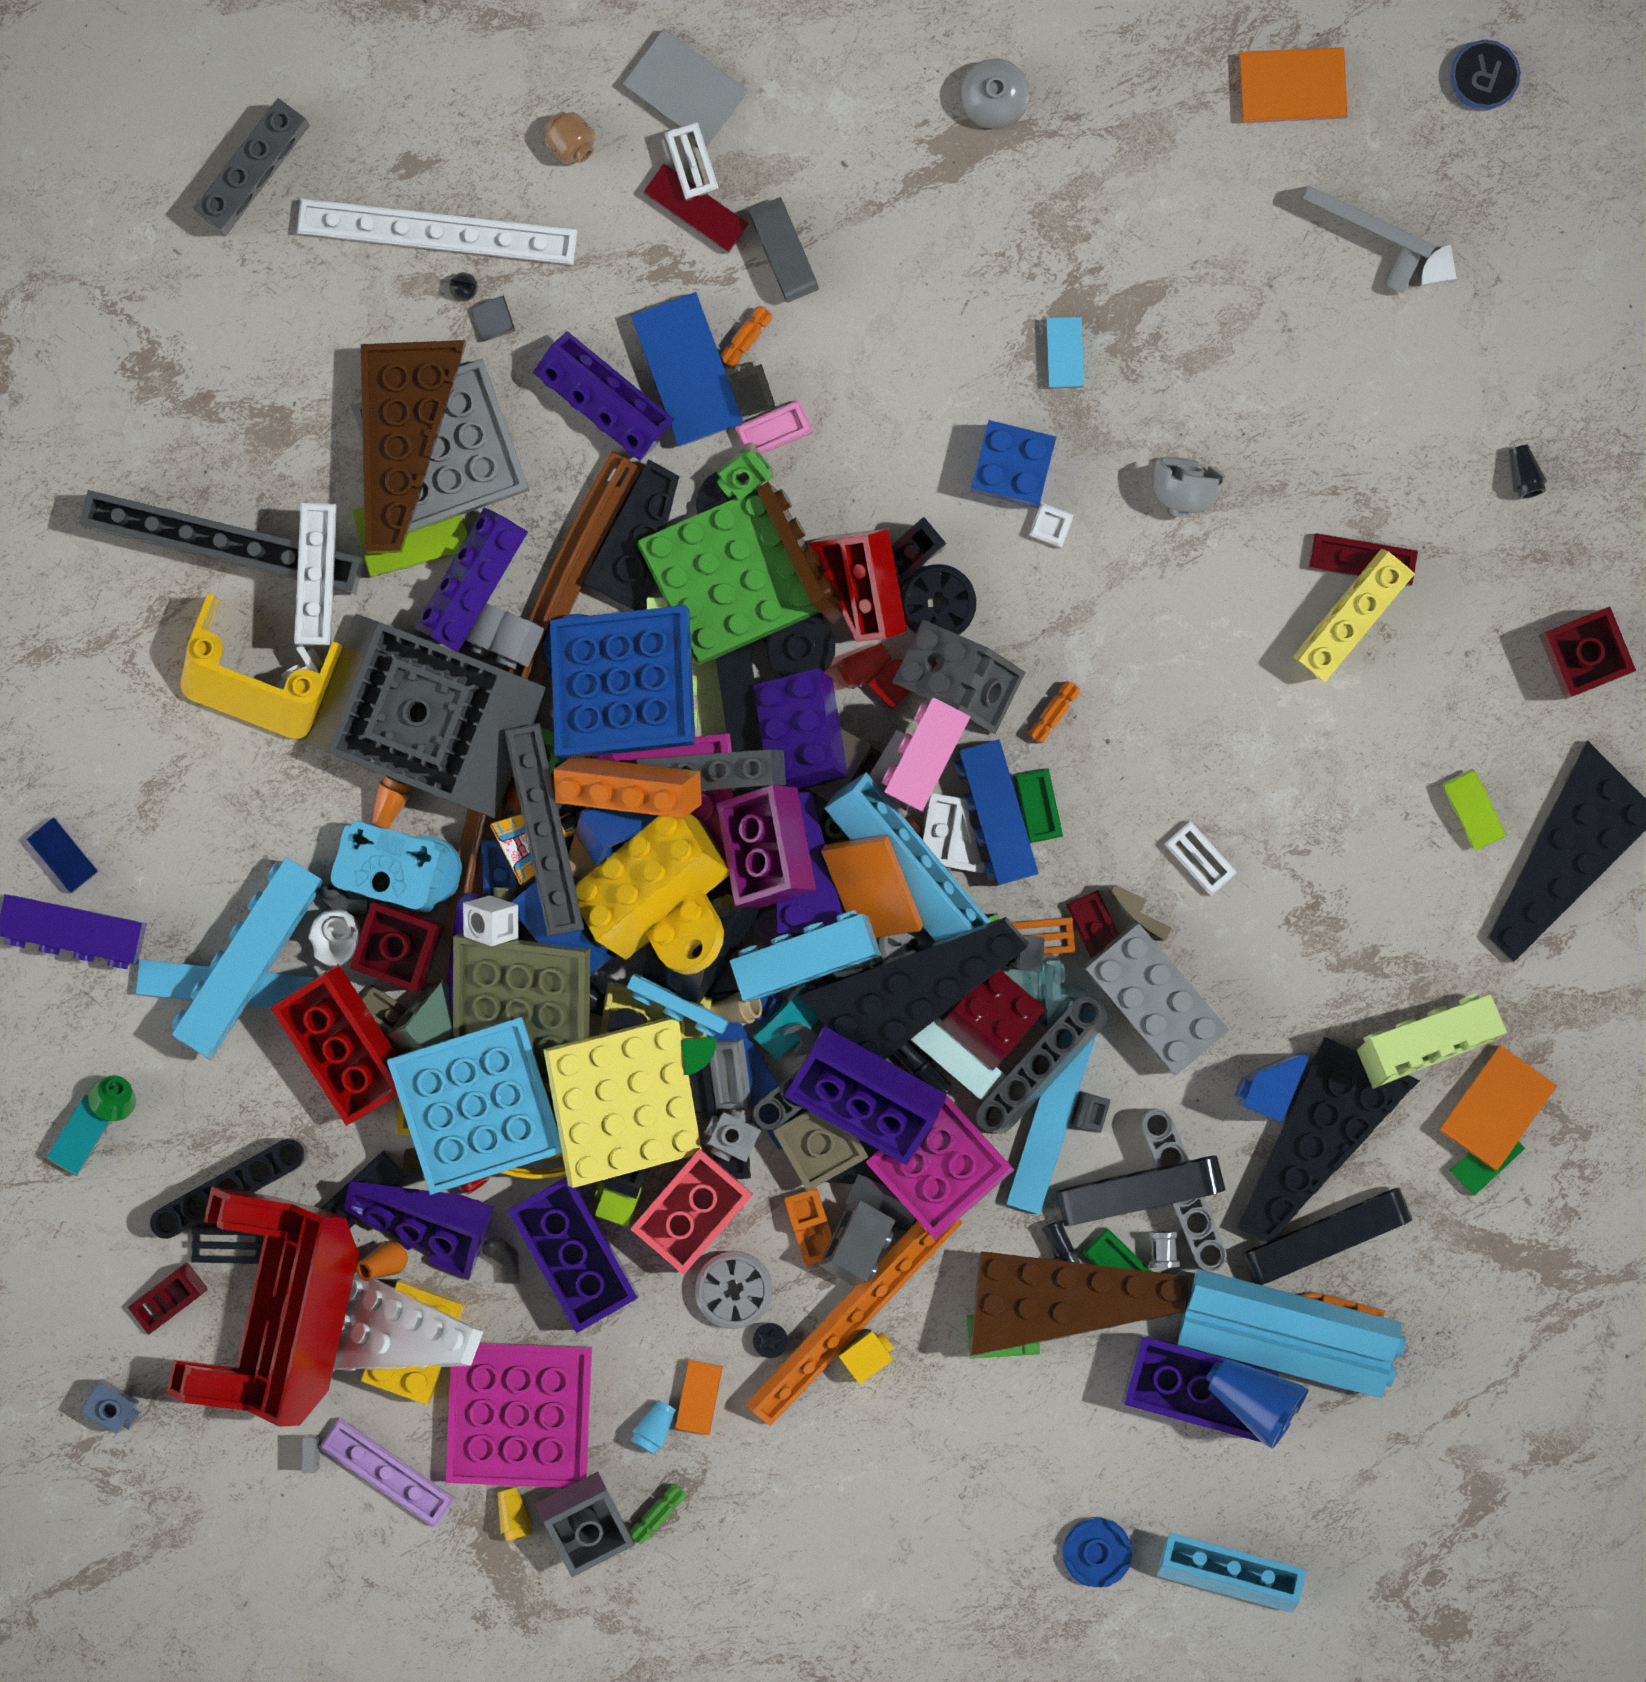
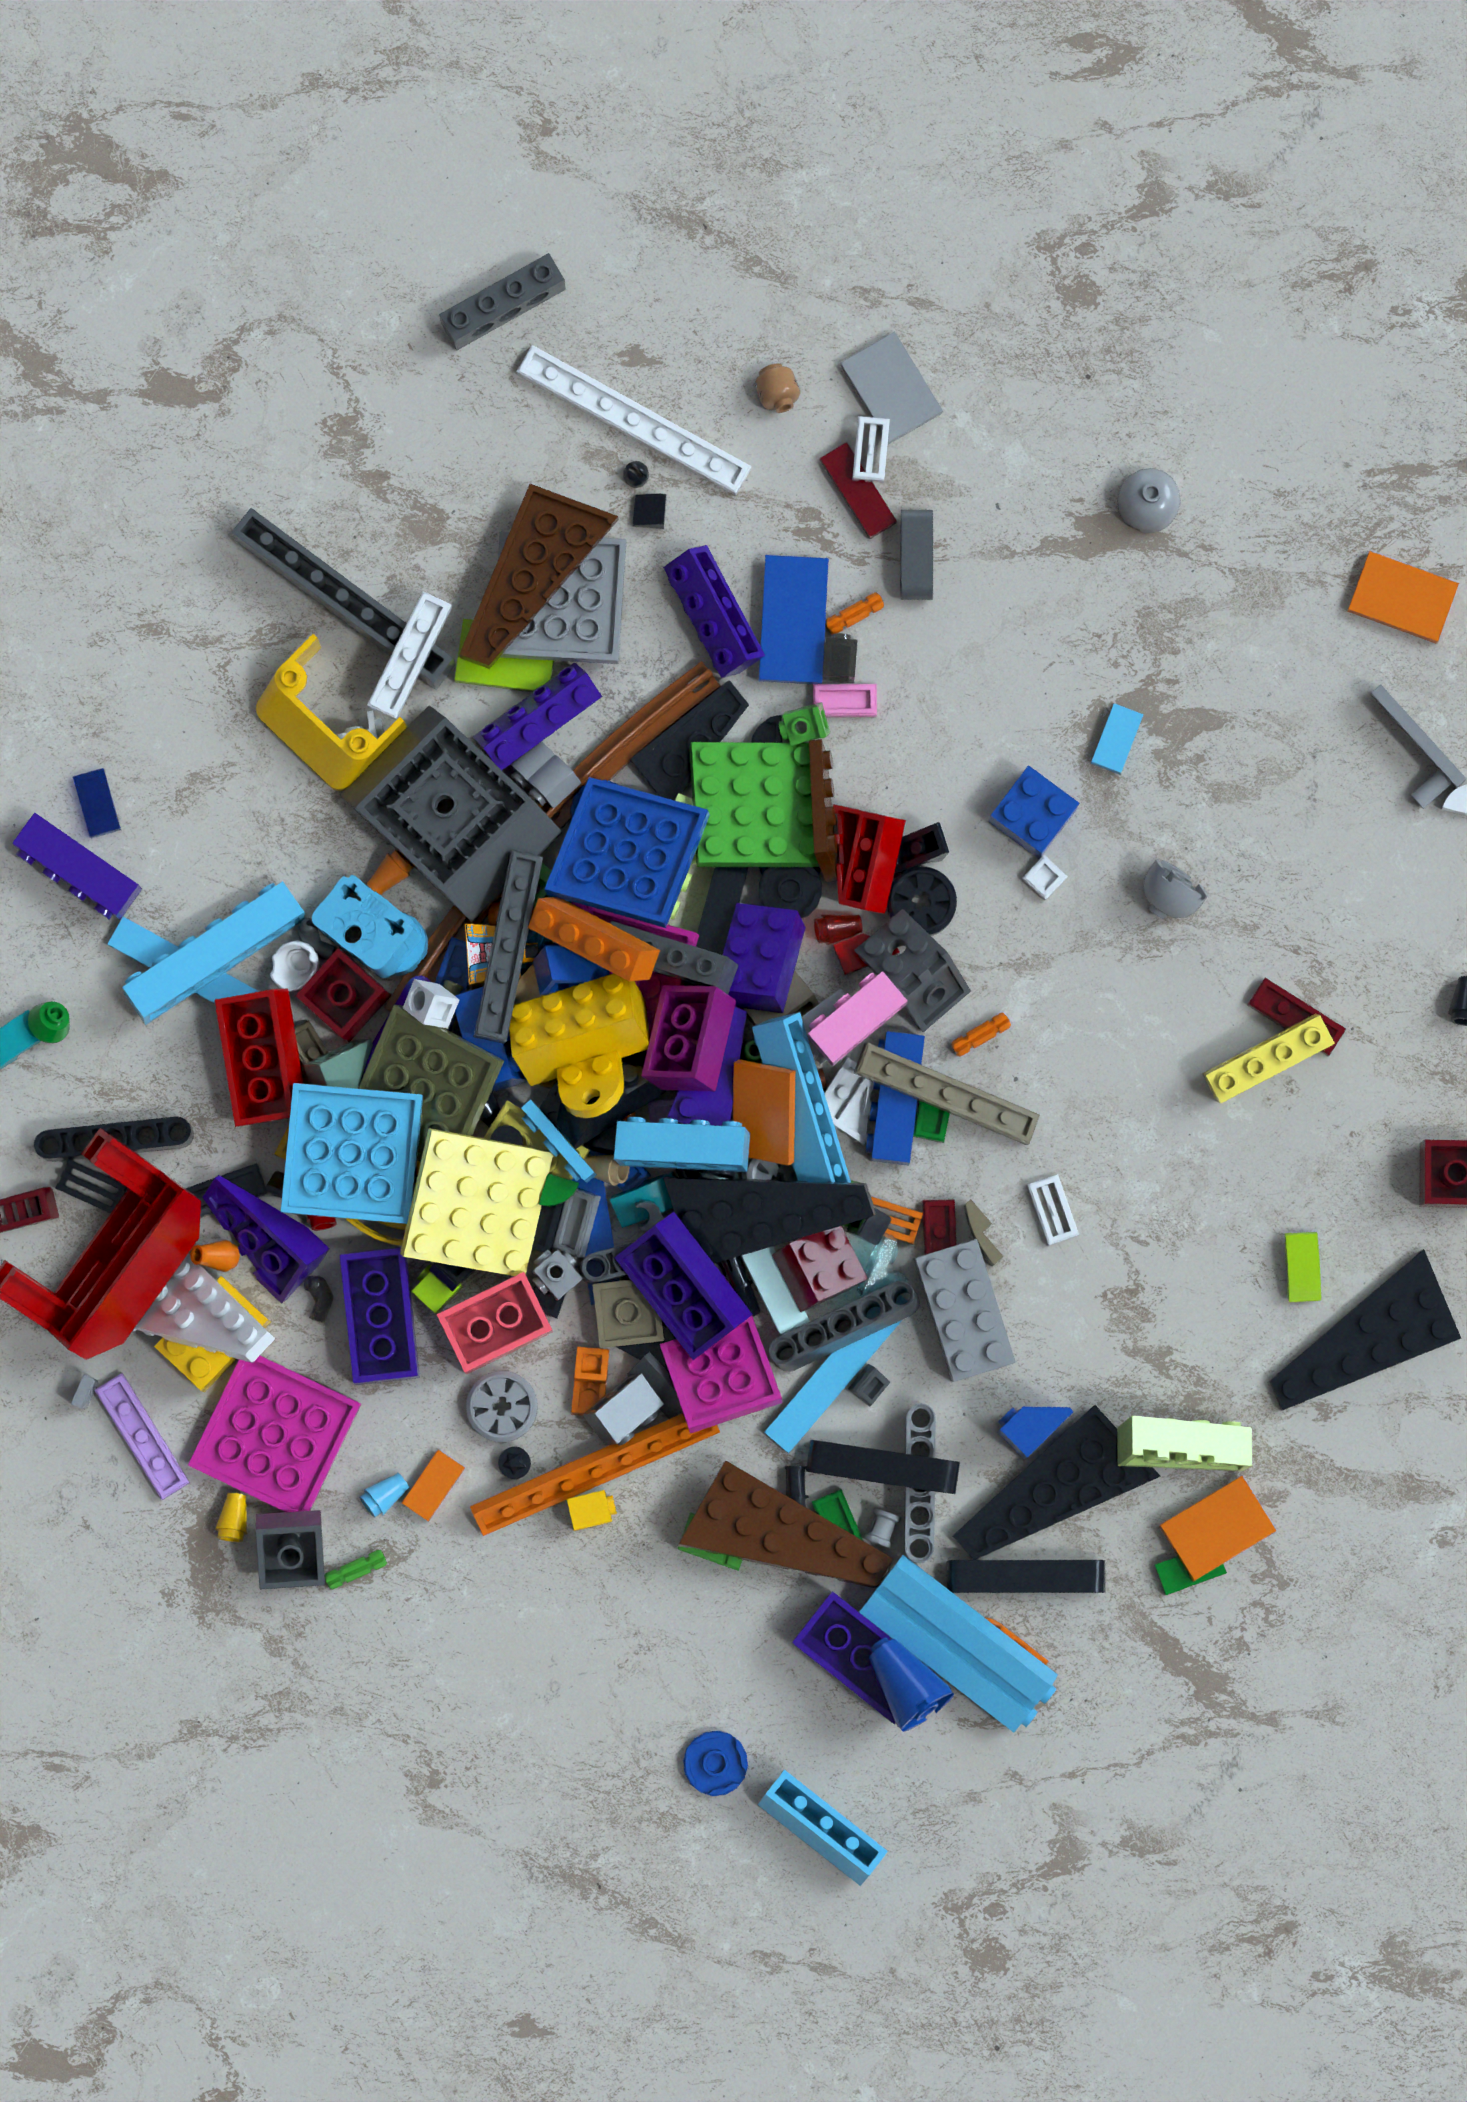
camera: 25 degrees right, 5 degrees down
(1045, 788) = (946, 1093): none -> dark tan tile

